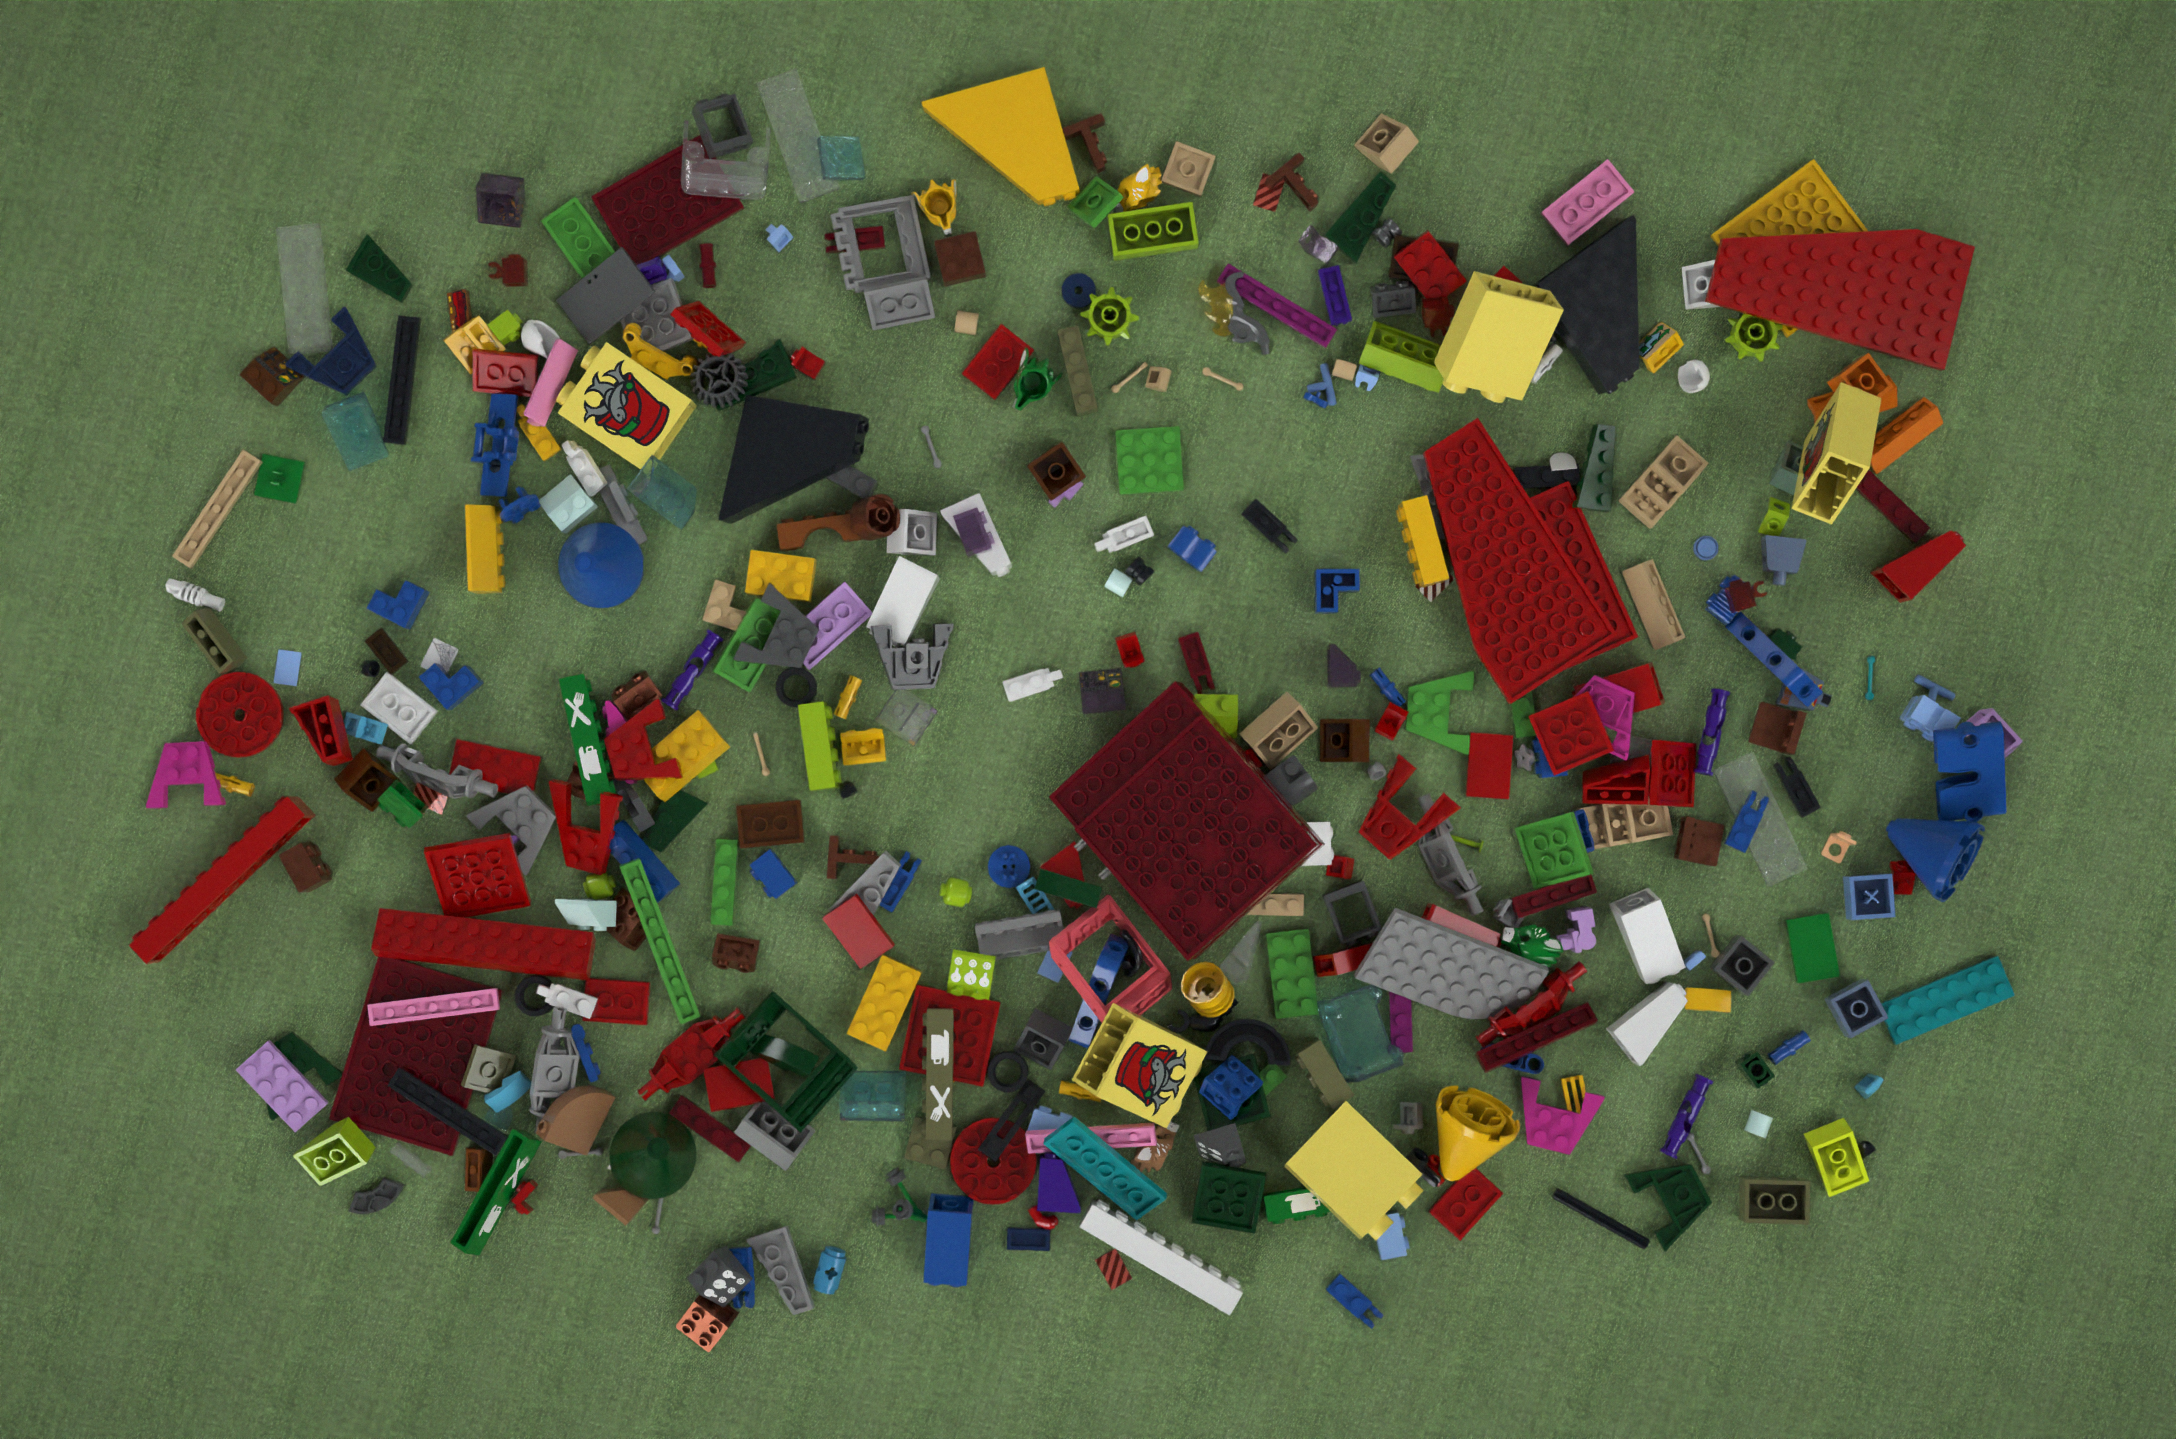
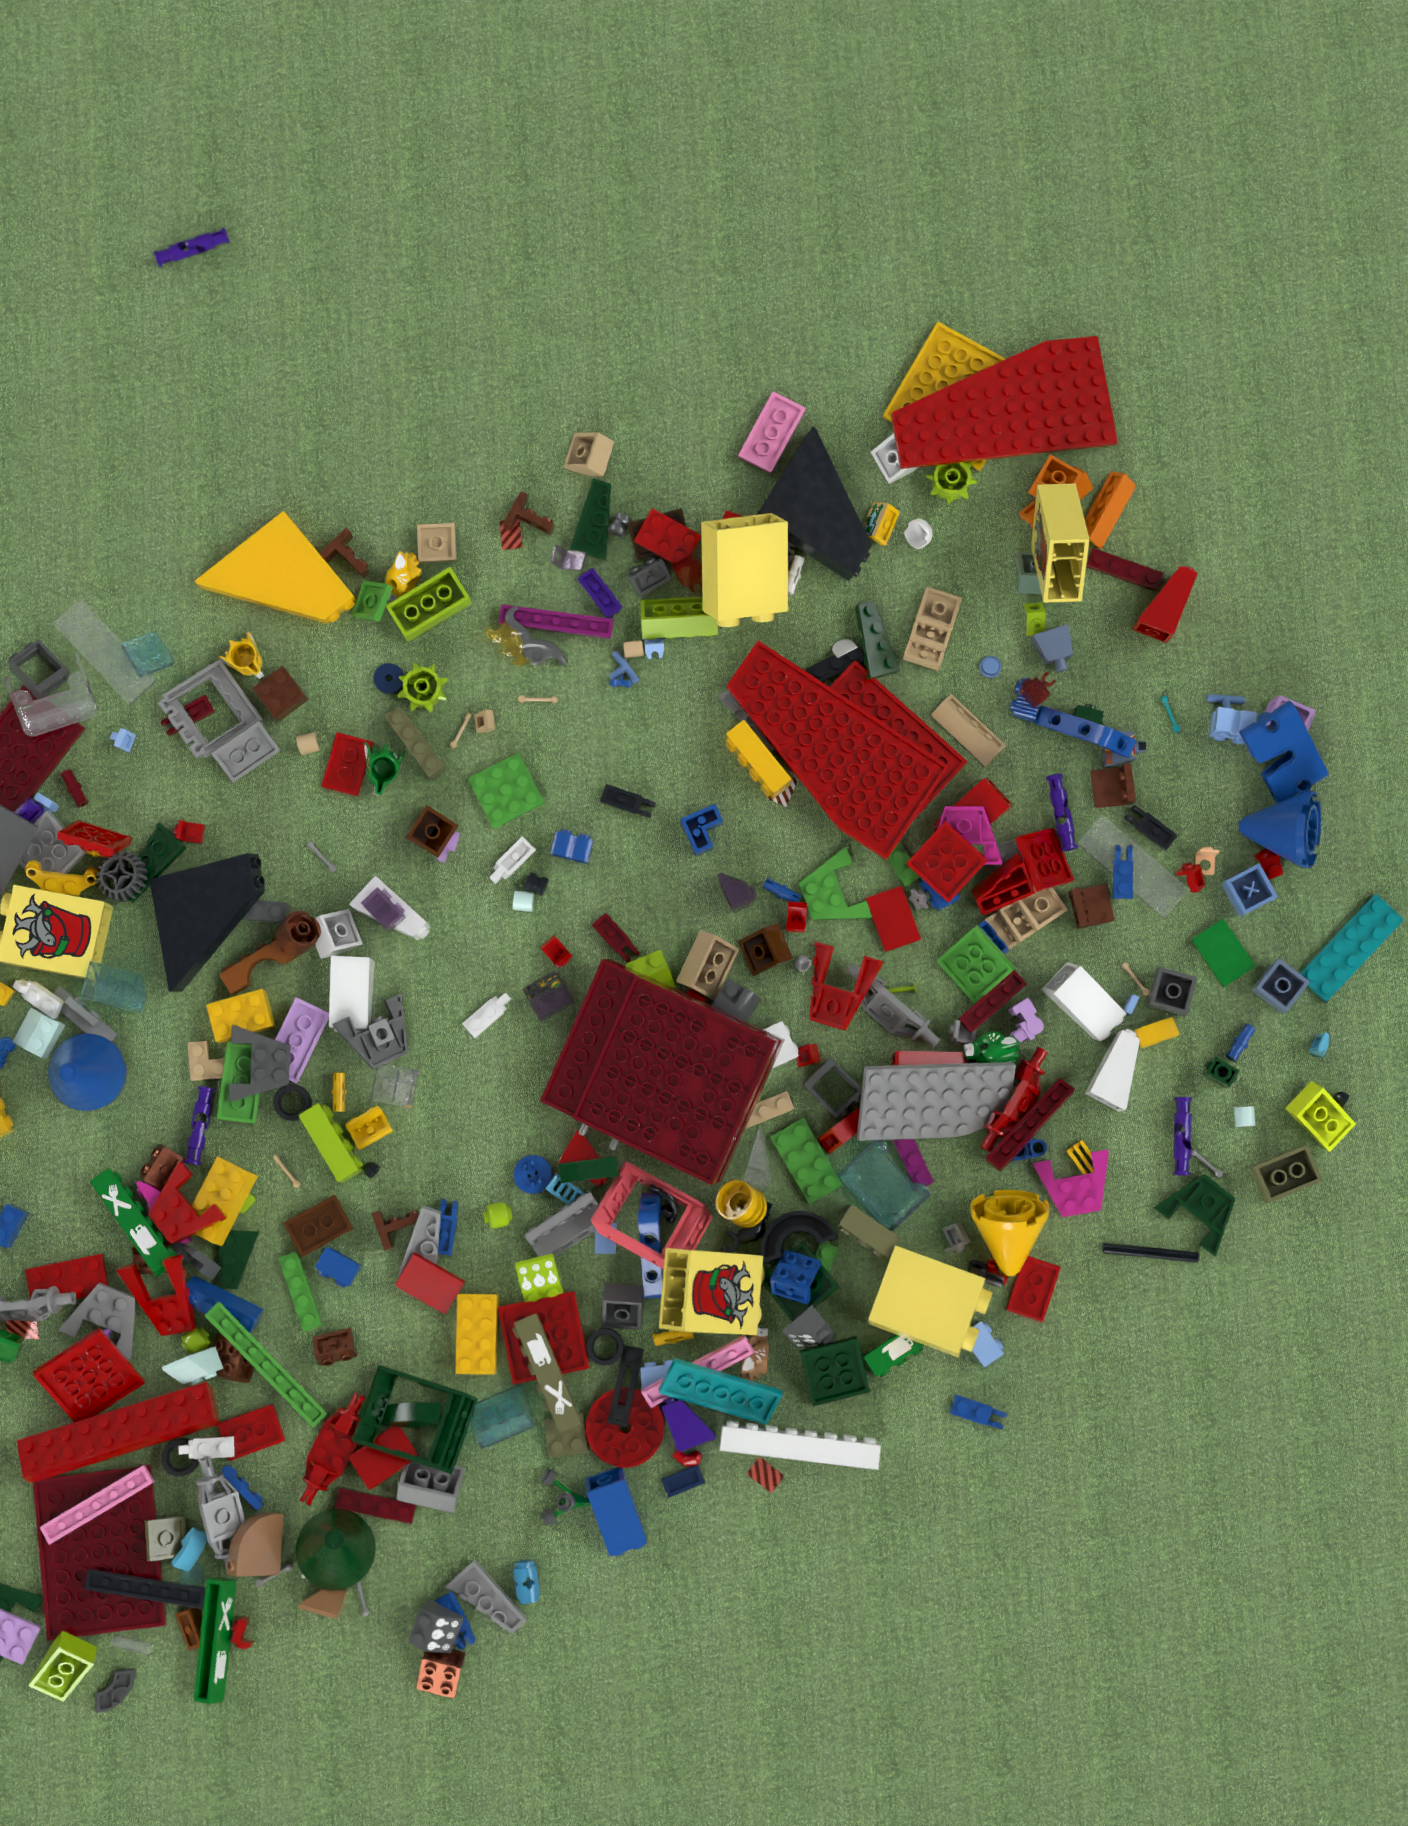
camera: 25 degrees left, 5 degrees down
(1819, 856) = (1194, 874): none -> red bracket

